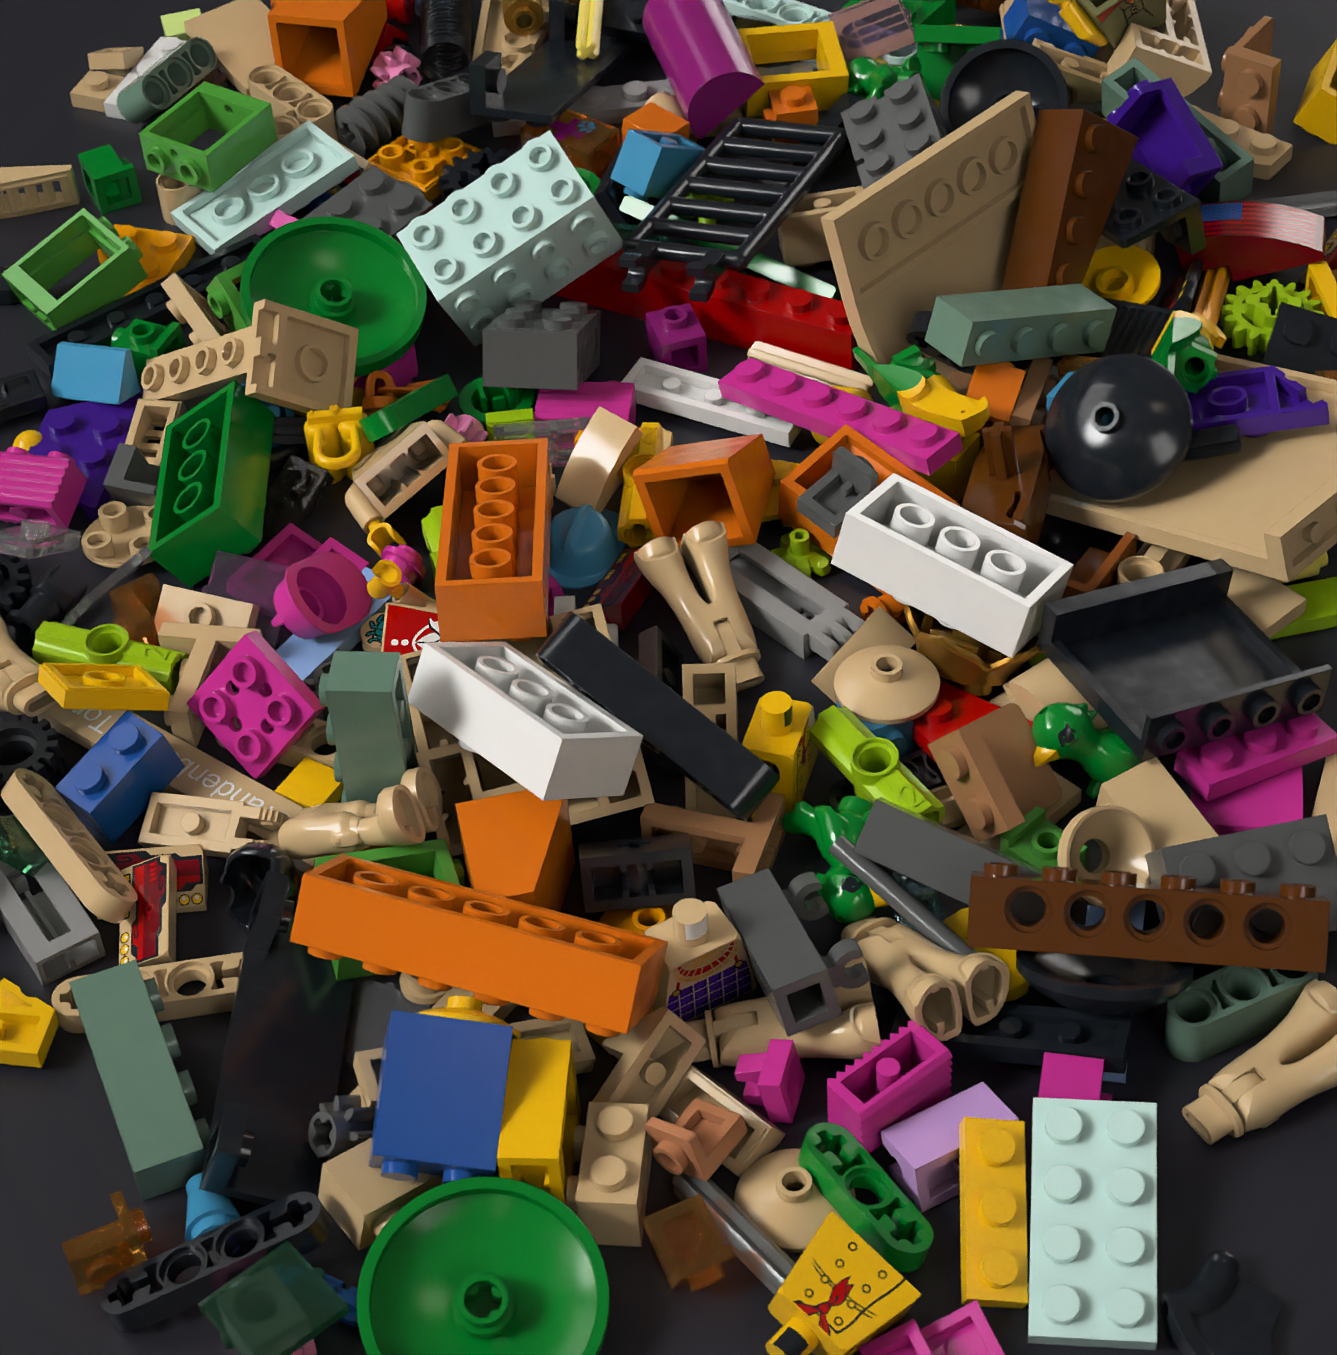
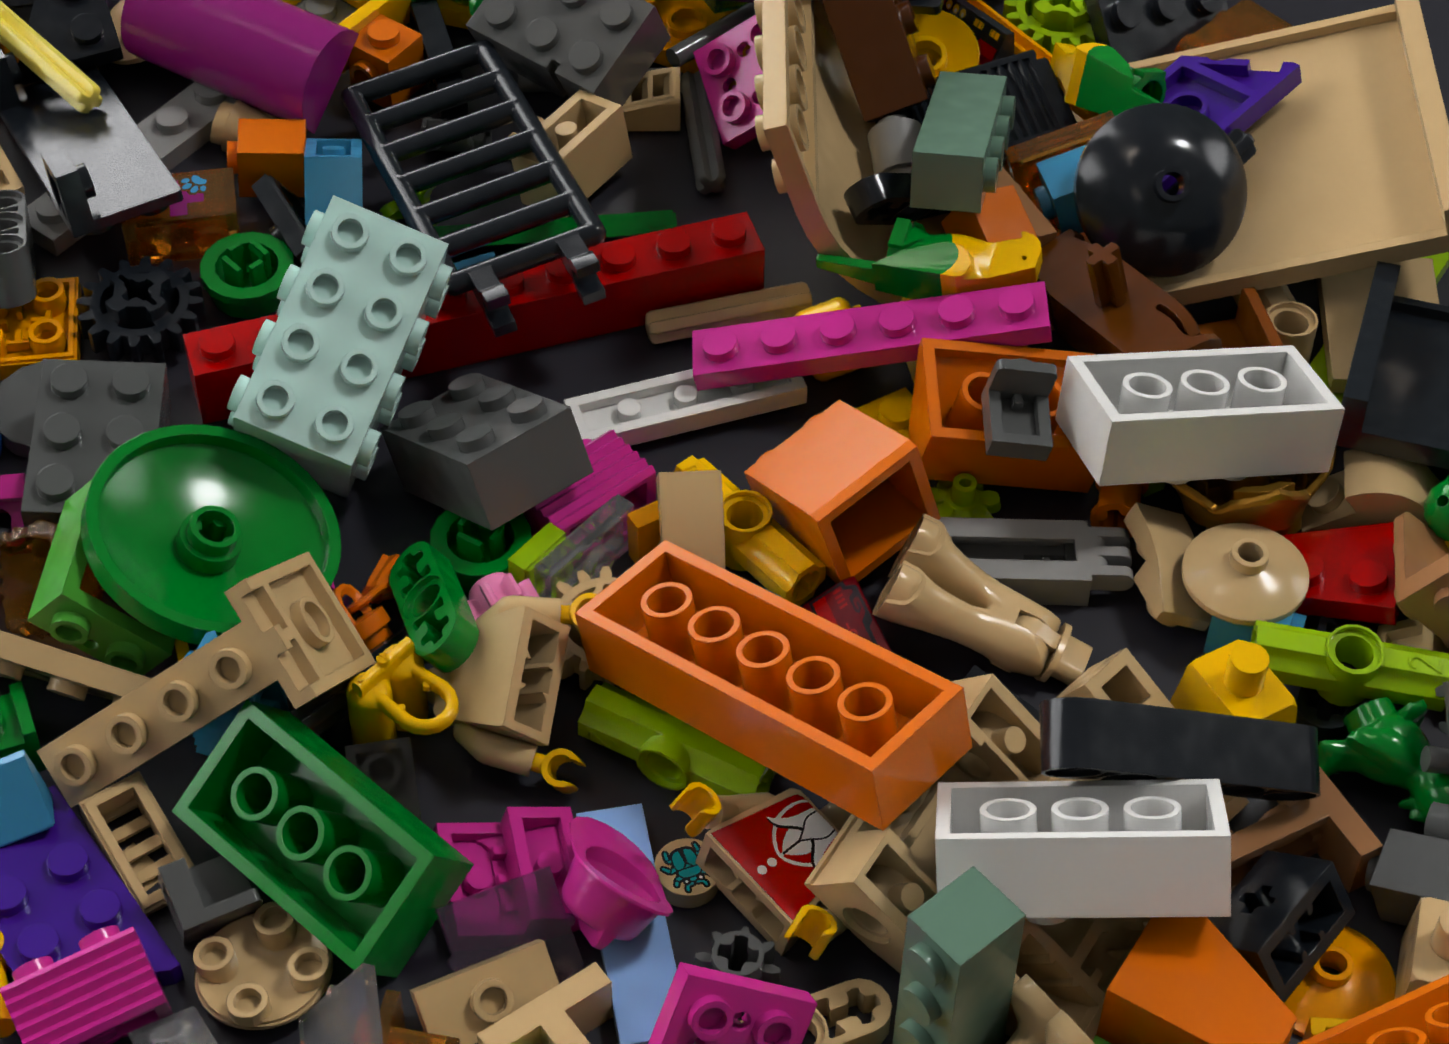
camera: 50 degrees left, 5 degrees up
(408, 561) = (615, 783): dark pink plate -> none
(677, 338) = (571, 358): magenta brick -> none

